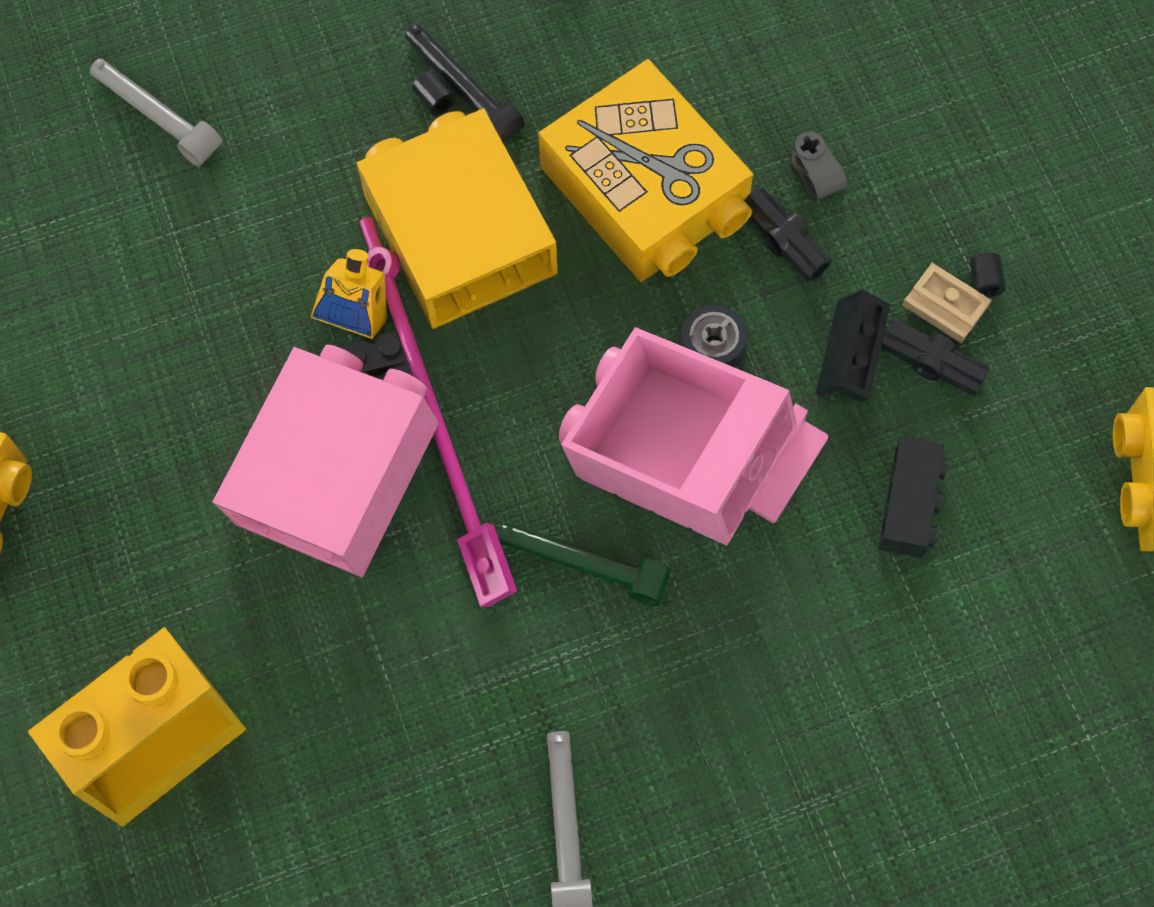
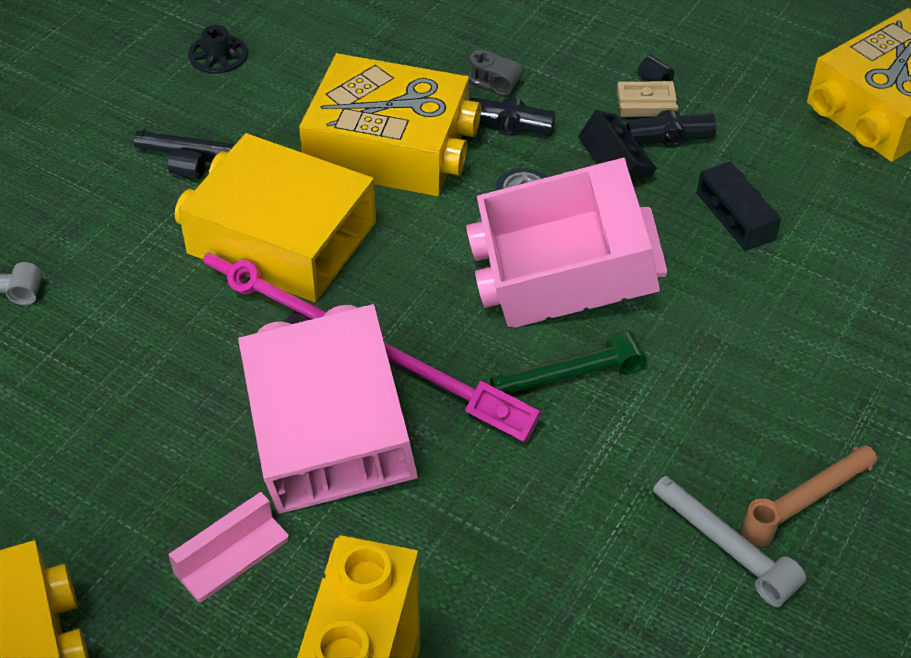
camera: 40 degrees left, 20 degrees down
(169, 532) = (227, 548): none -> bright pink panel
(352, 296) = (241, 301): torso -> none
(680, 839) = (765, 515): none -> nougat piece

